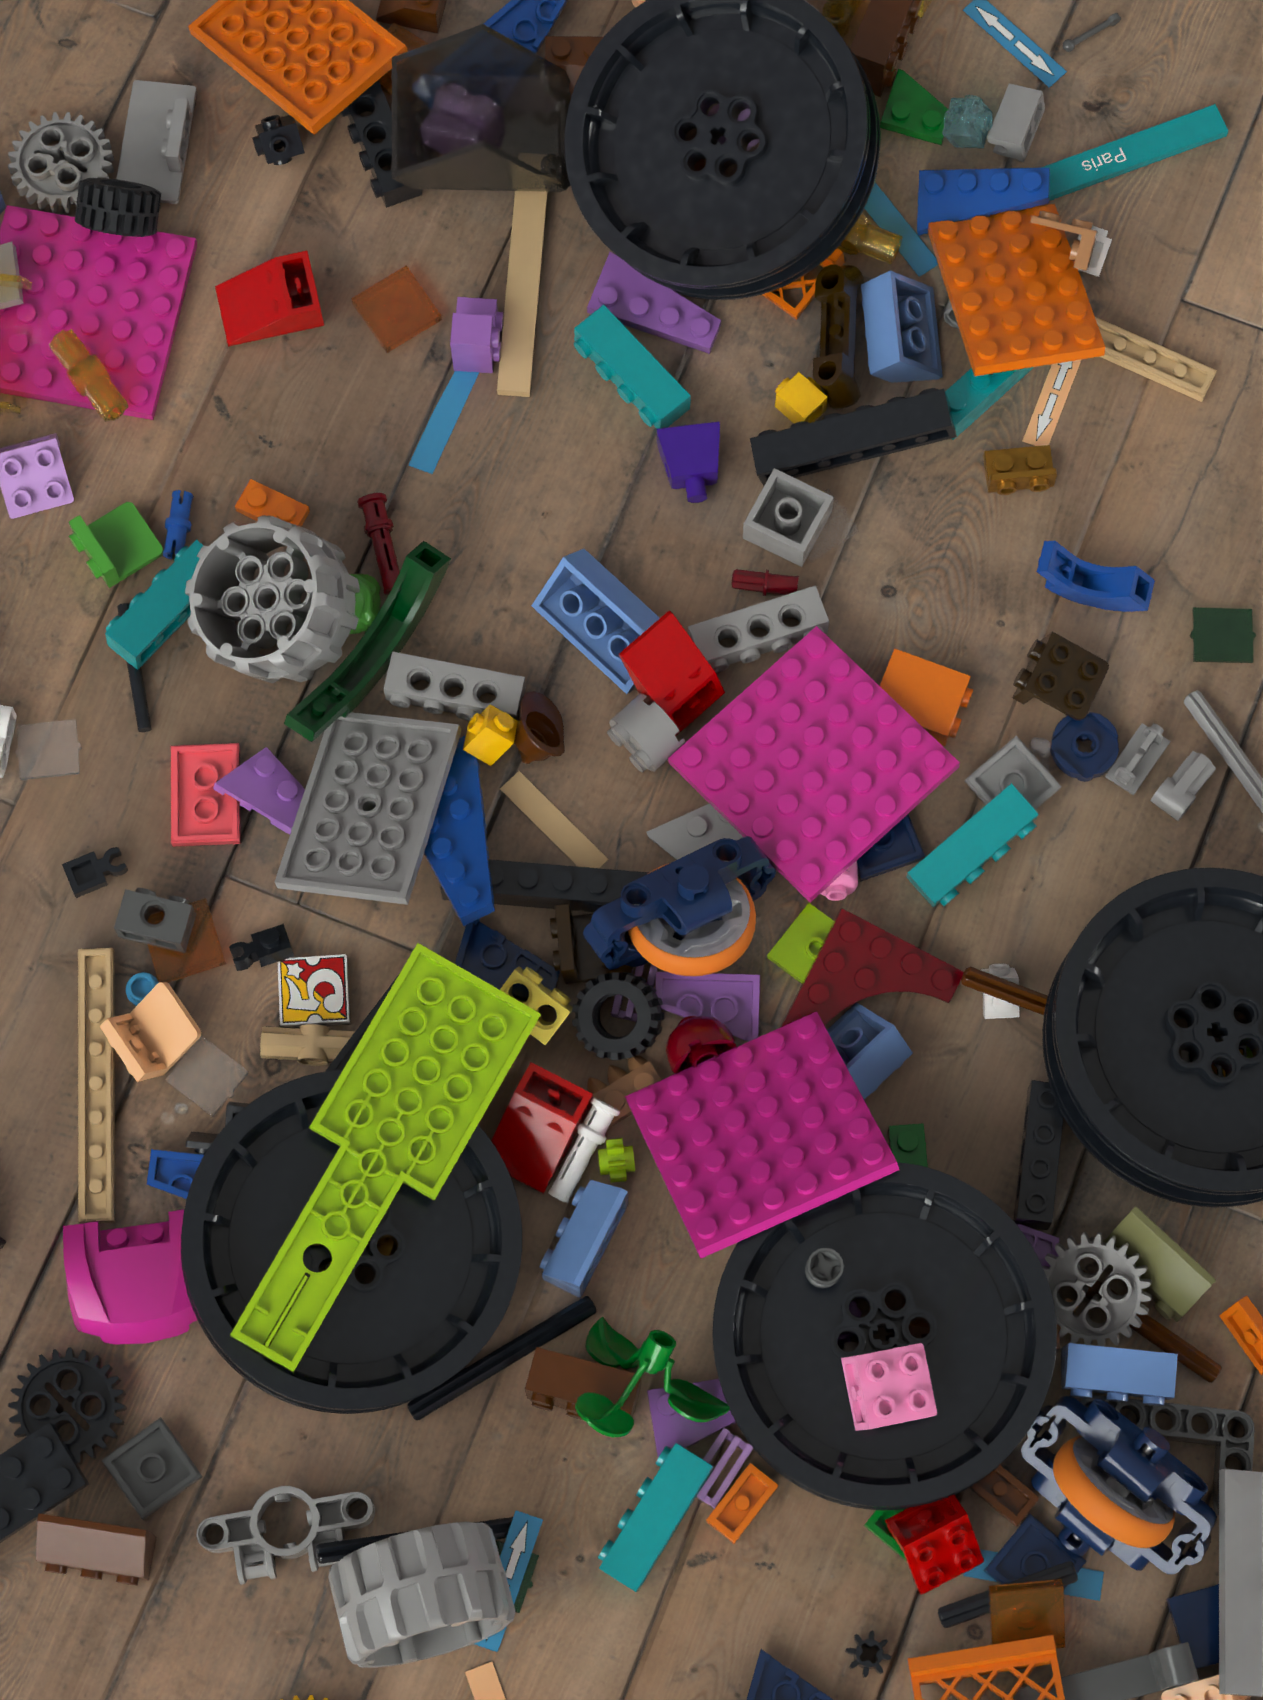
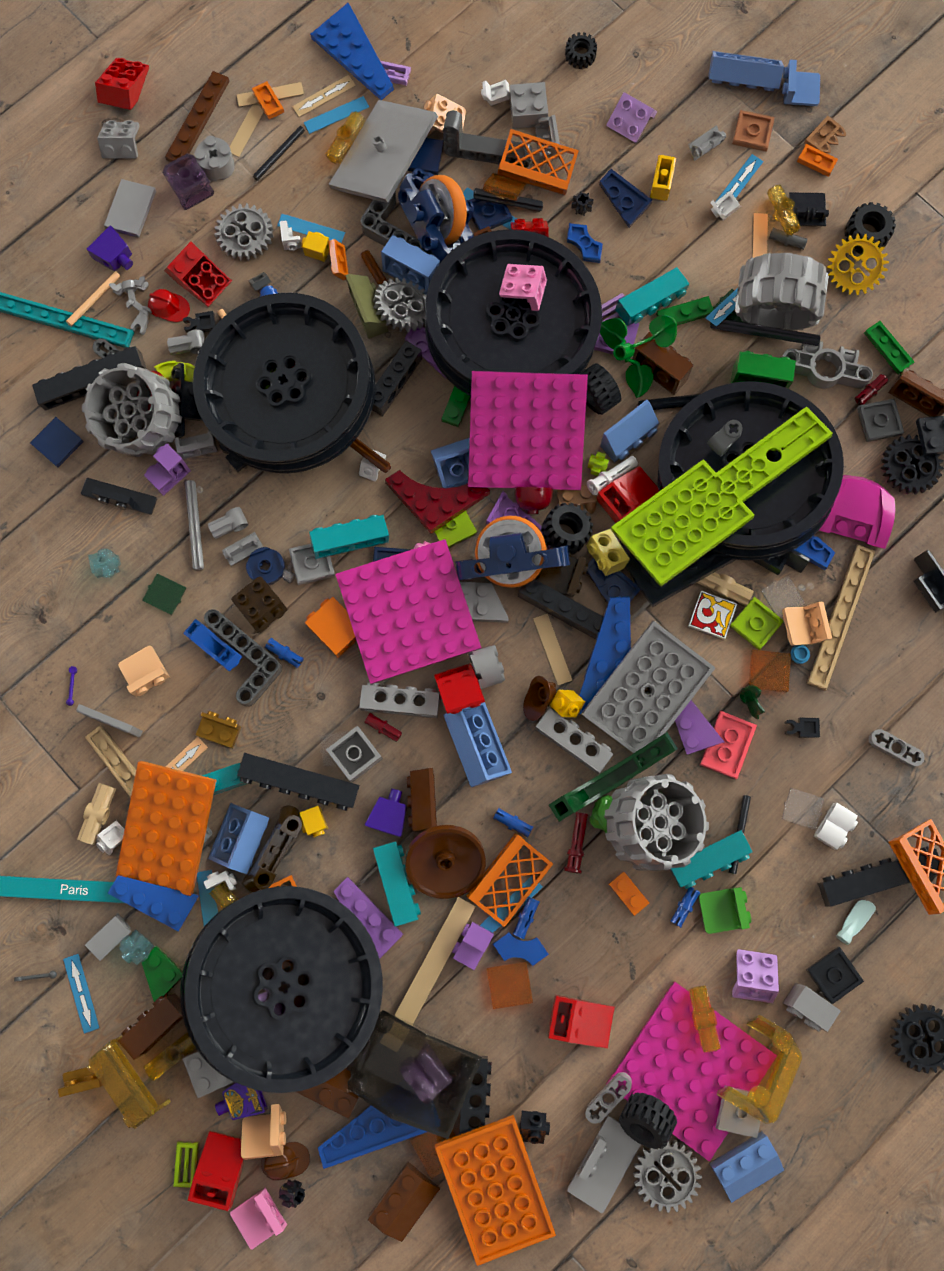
camera: 155 degrees left, 5 degrees up
(170, 933) = (794, 683): dark grey brick -> none
(185, 1619) = (889, 347): none -> green plate
(187, 232) = (608, 1107): none -> light grey beam
(188, 1521) = (871, 389): none -> dark red axle
(199, 879) = (749, 697): none -> dark green plate
(235, 1006) = (756, 623): none -> lime plate
(267, 948) = (727, 647): black plate -> none
(388, 367) = (529, 950): none -> blue tile
(396, 1451) = (763, 369): none -> green piece
(413, 407) = (526, 917): none -> blue pin
(413, 1260) = (723, 440): none -> dark grey piece
(490, 456) = (497, 867): none -> orange fence
(495, 531) = (513, 822): none -> blue pin
(571, 420) = (445, 861): none -> reddish brown dish
(584, 1523) = (688, 311): none -> green plate
(648, 497) = (422, 799): none -> reddish brown slope
(674, 1283) = (601, 389): none -> black tyre
(742, 1503) = (612, 287): orange plate -> none
(829, 1265) = (529, 340): dark grey wheel -> none
(844, 1589) = (589, 248): none -> blue tile
(901, 261) = (215, 879): none -> white bracket
(980, 626) = (284, 653): none -> blue pin
(1040, 596) = (248, 651): none -> dark grey beam
(1081, 249) = (114, 841): medium nougat bracket -> none
(1133, 273) = (96, 814): none -> tan piece
(1183, 500) = (143, 671): none -> light nougat bracket
(1189, 400) = (109, 720): none -> light grey tile

